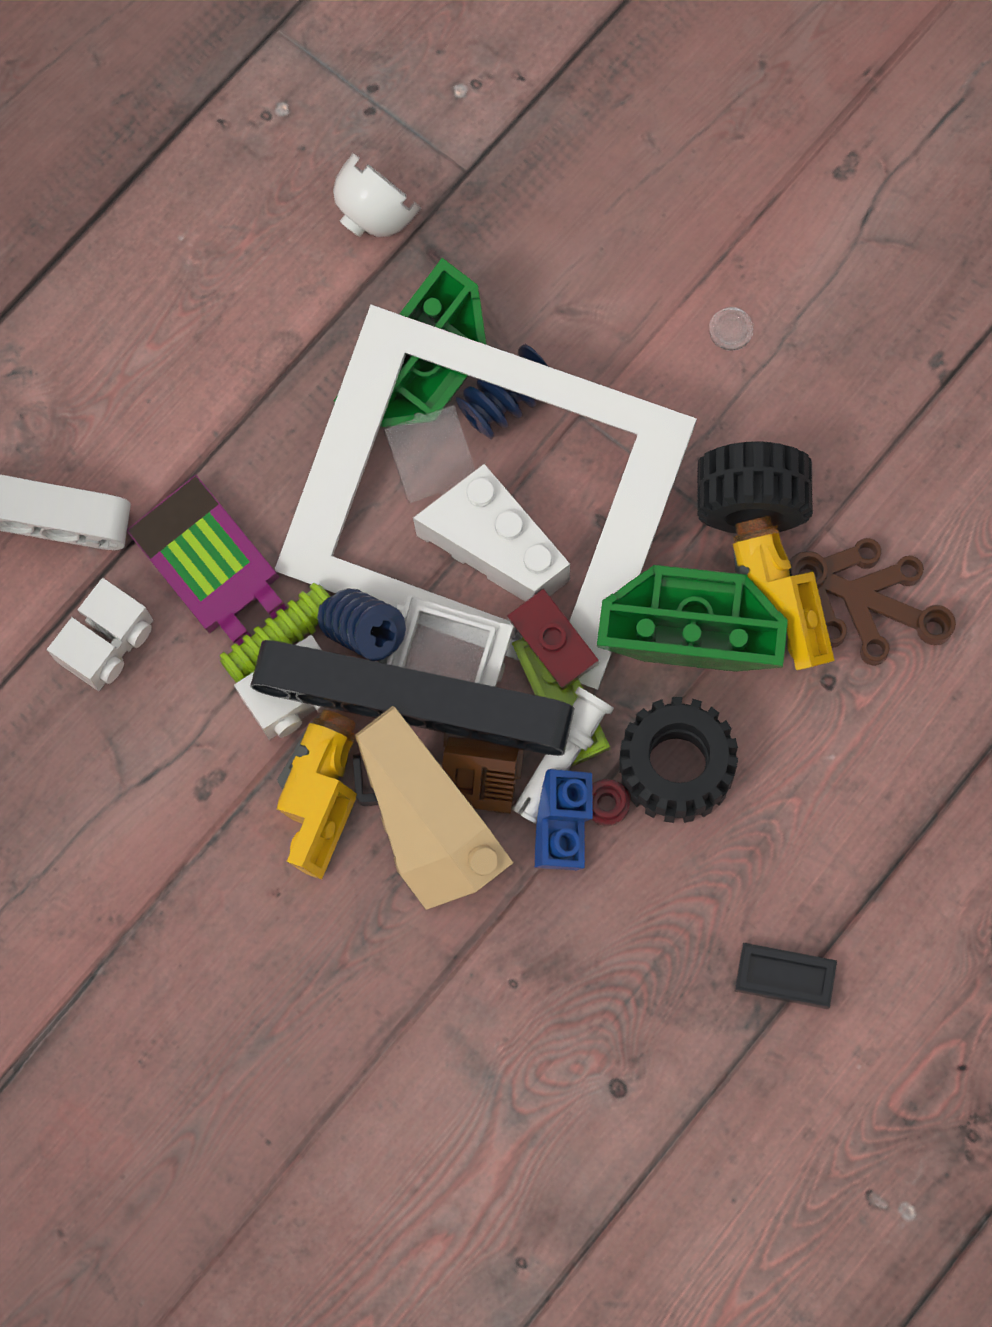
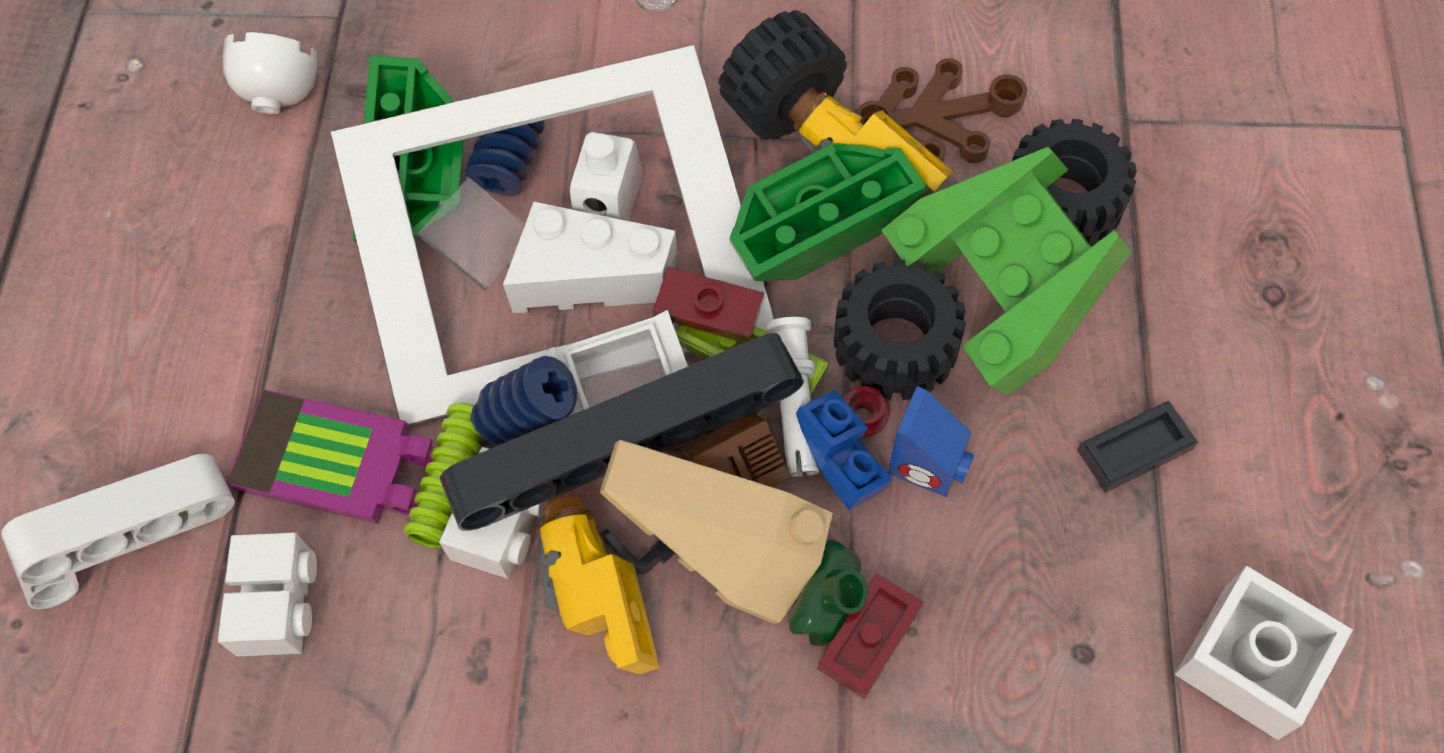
camera: 40 degrees left, 10 degrees down
(473, 916) = (829, 595): none -> dark green piece
(477, 965) = (870, 636): none -> dark red plate
(554, 482) = (606, 172): none -> white torso
(625, 865) = (930, 446): none -> blue slope
(729, 1179) = (1264, 653): none -> white brick
(810, 775) = (1024, 255): none -> bright green wedge
(929, 708) = (1094, 163): none -> black tyre

